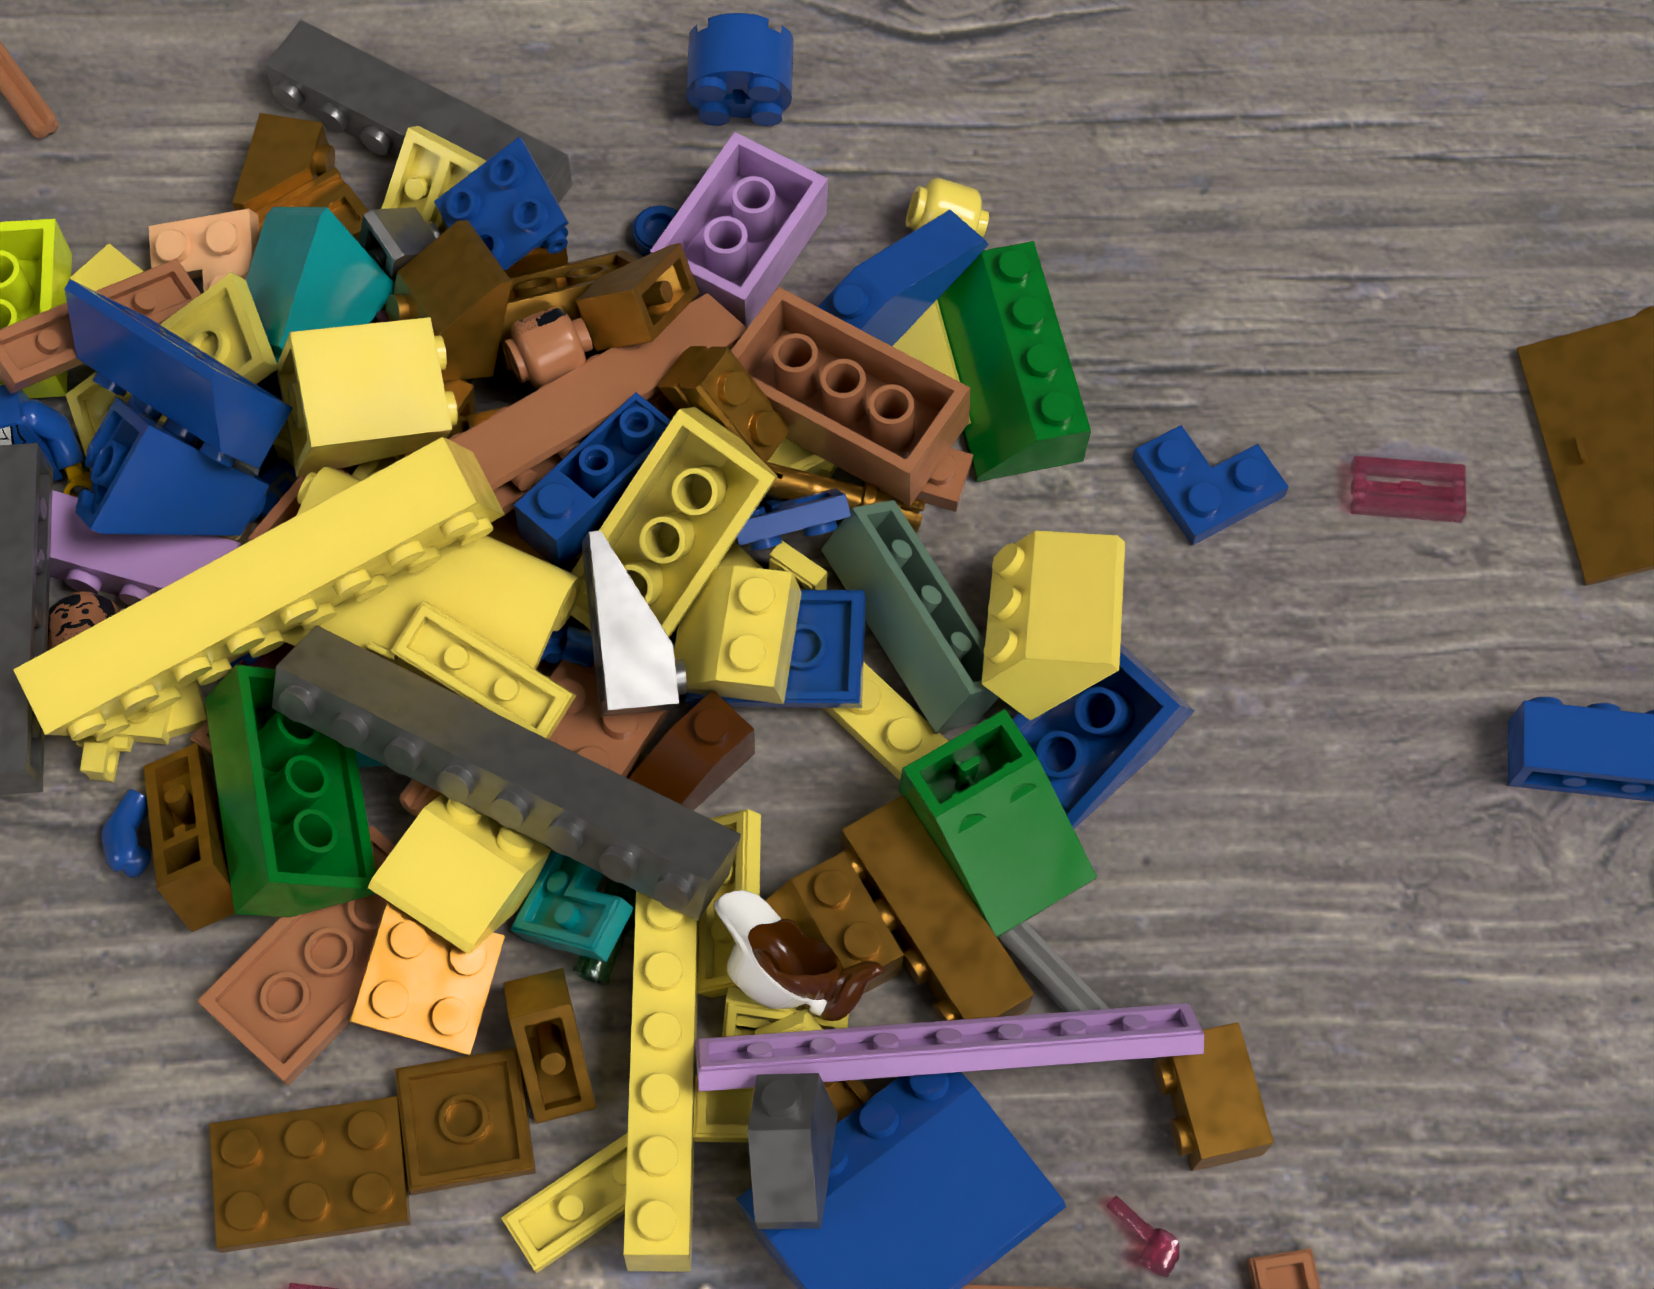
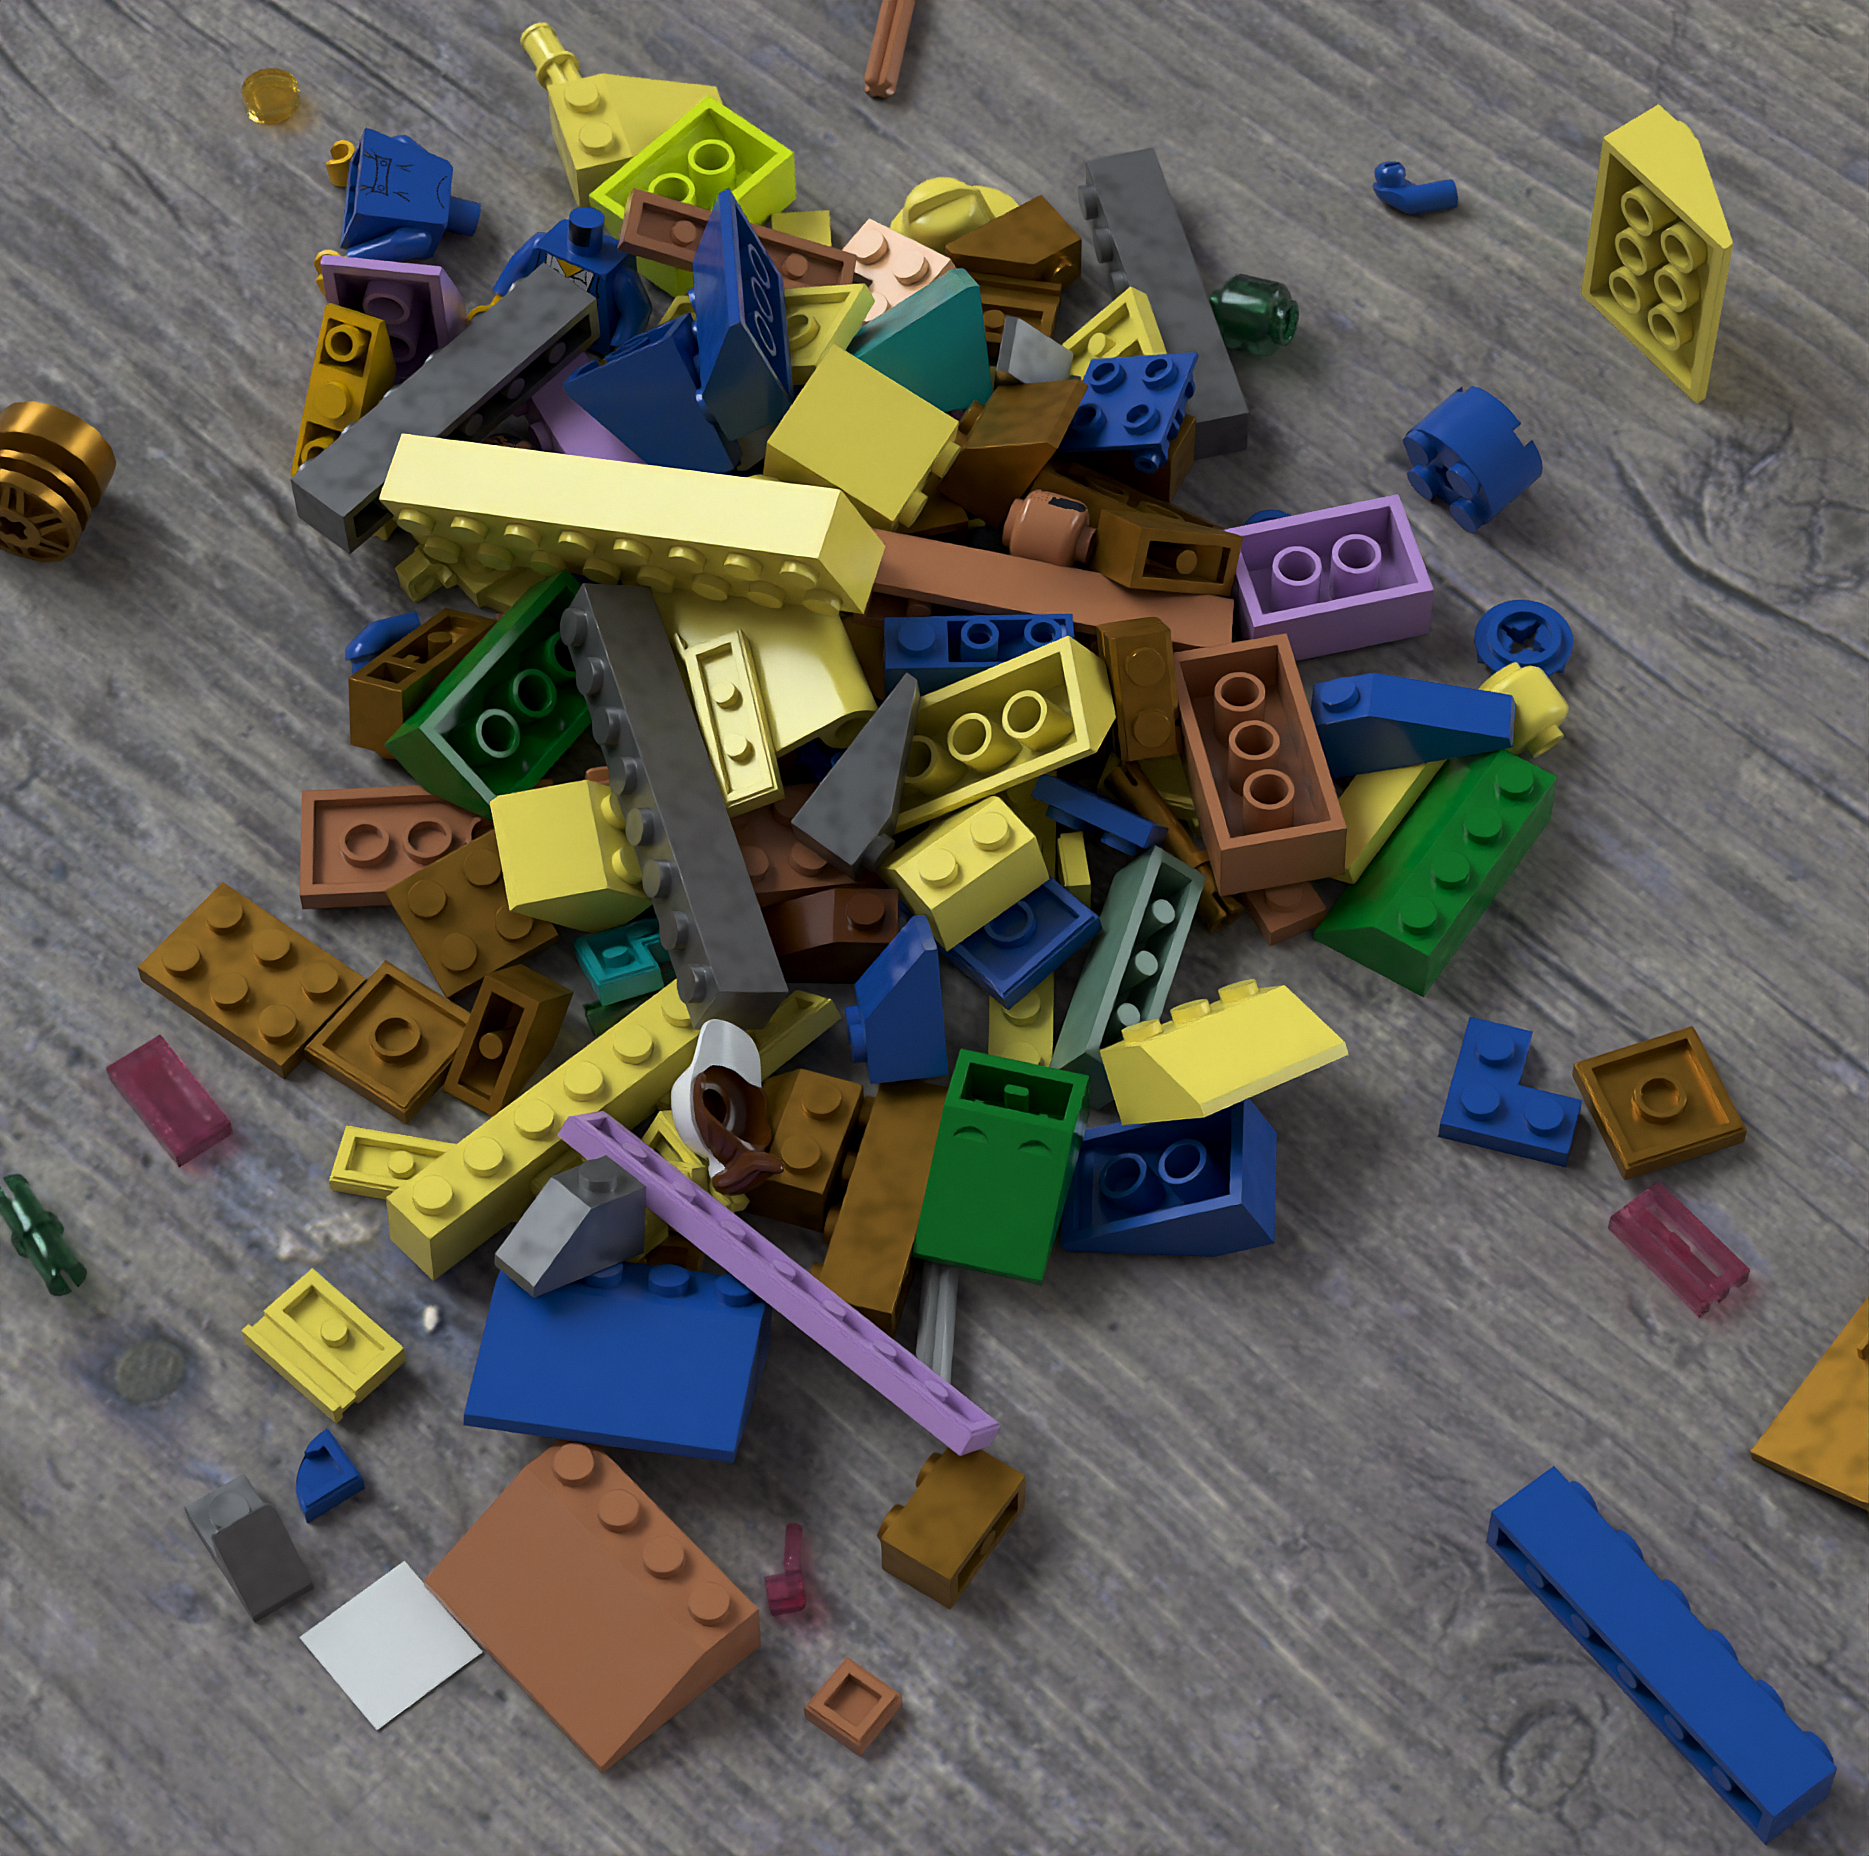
camera: 50 degrees right, 10 degrees down
(201, 178) = (947, 210): none -> light yellow piece
(489, 83) = (1255, 314): none -> clear green head
(811, 772) = (900, 1010): none -> blue slope
(908, 157) = (1516, 622): none -> blue gear
(1300, 405) = (1658, 1103): none -> pearl gold plate

